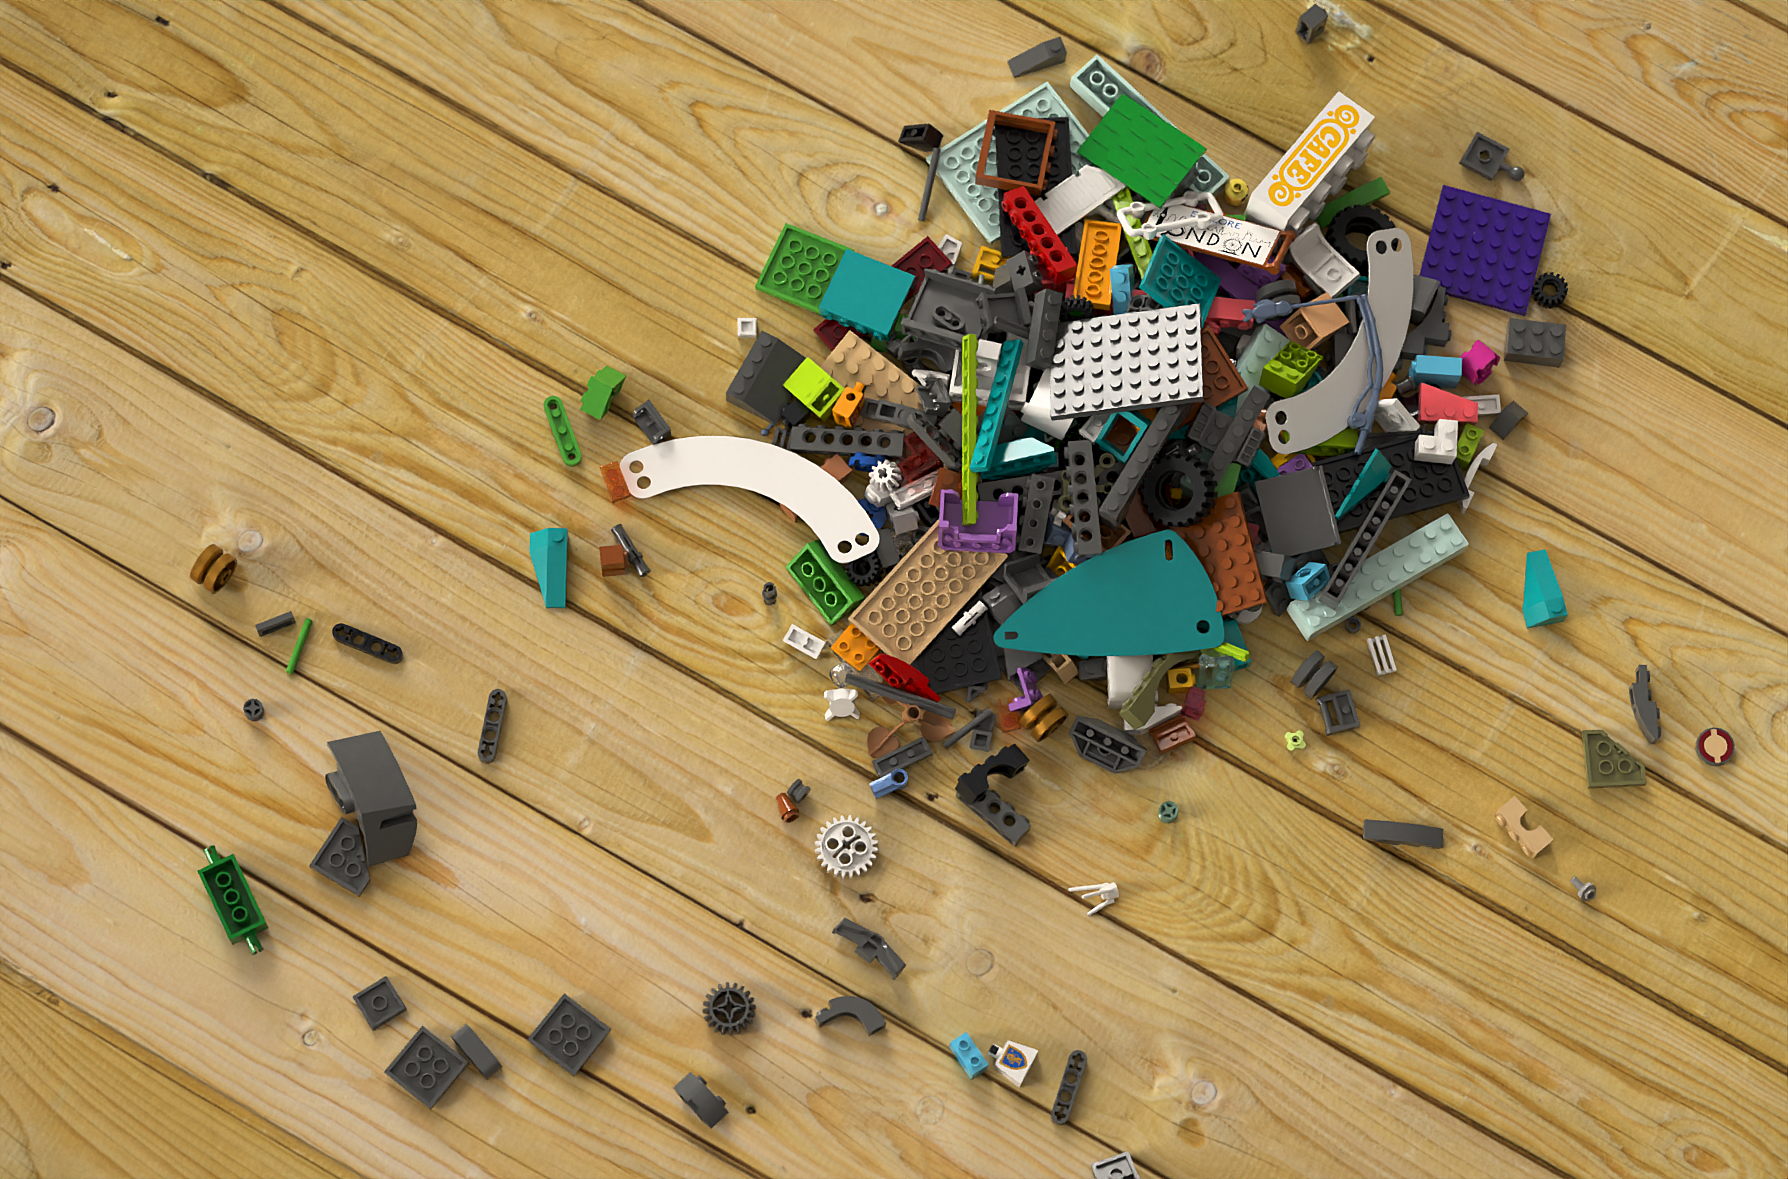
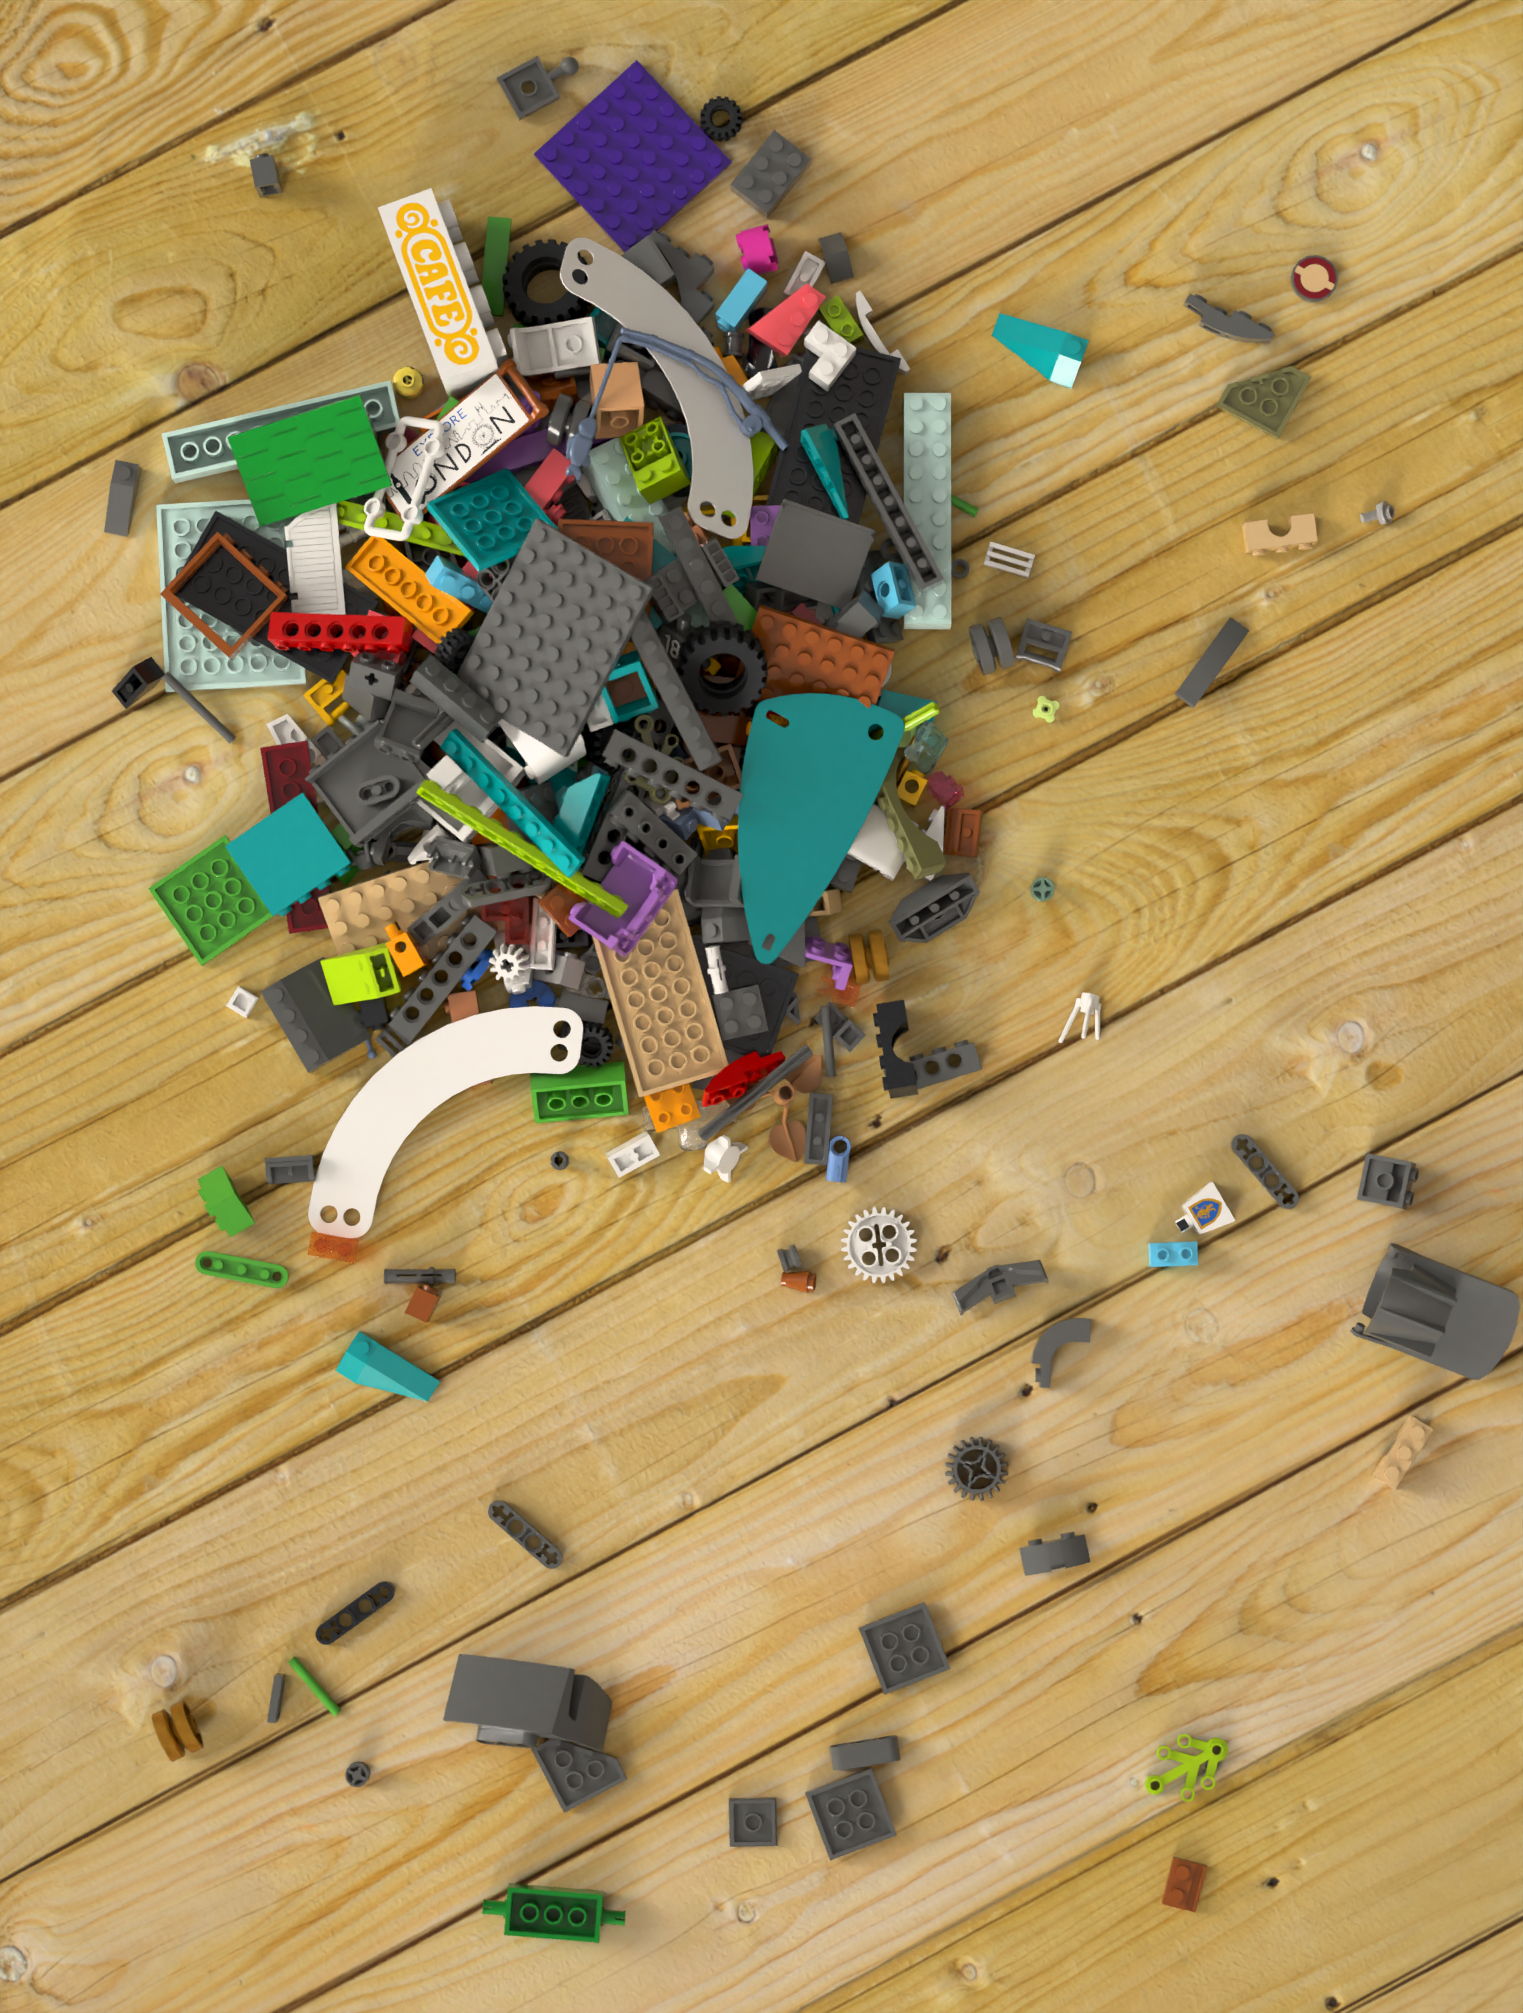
camera: 55 degrees left, 15 degrees up
(949, 653) = (740, 1012): none -> dark grey plate

